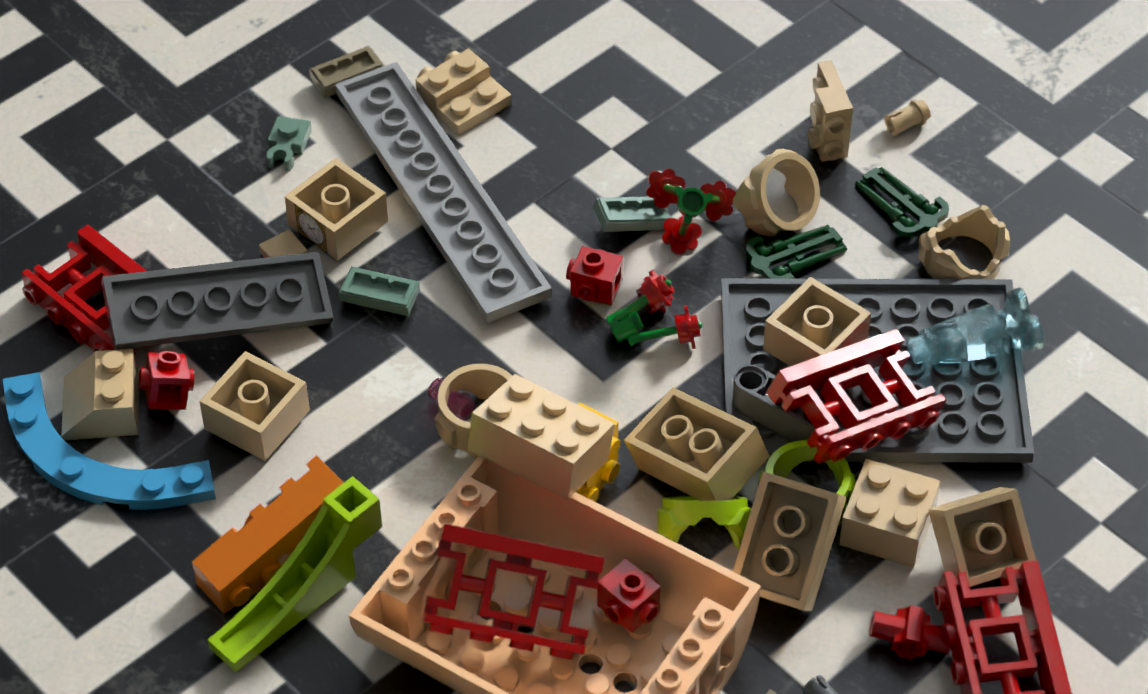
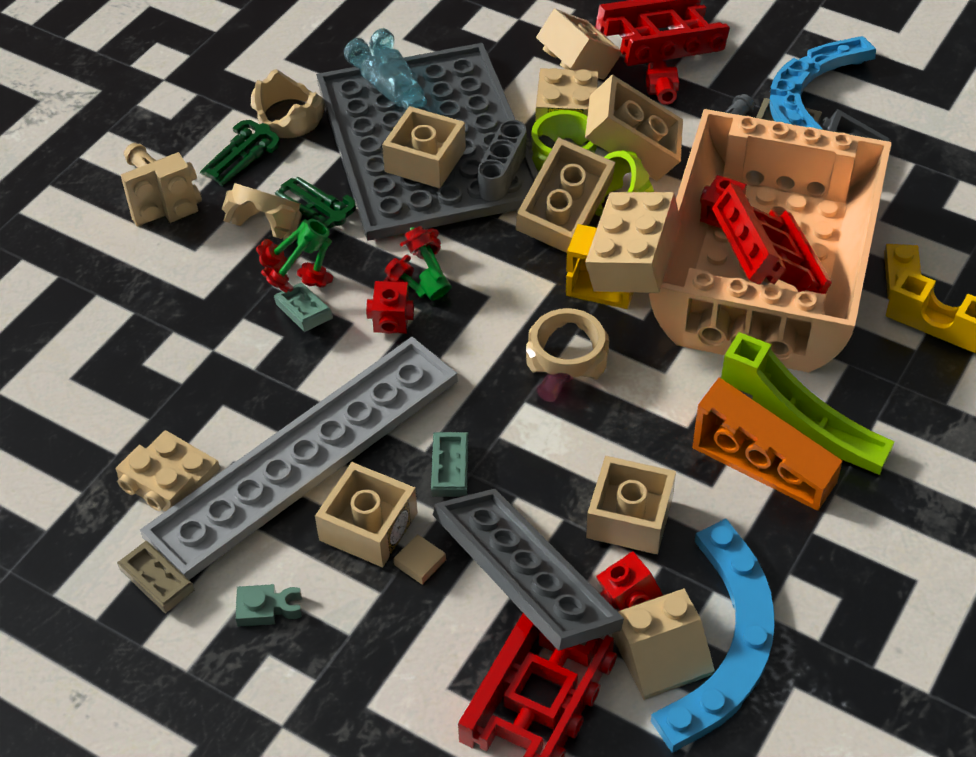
camera: 105 degrees left, 0 degrees up
(845, 370) = (493, 106): red fence -> none

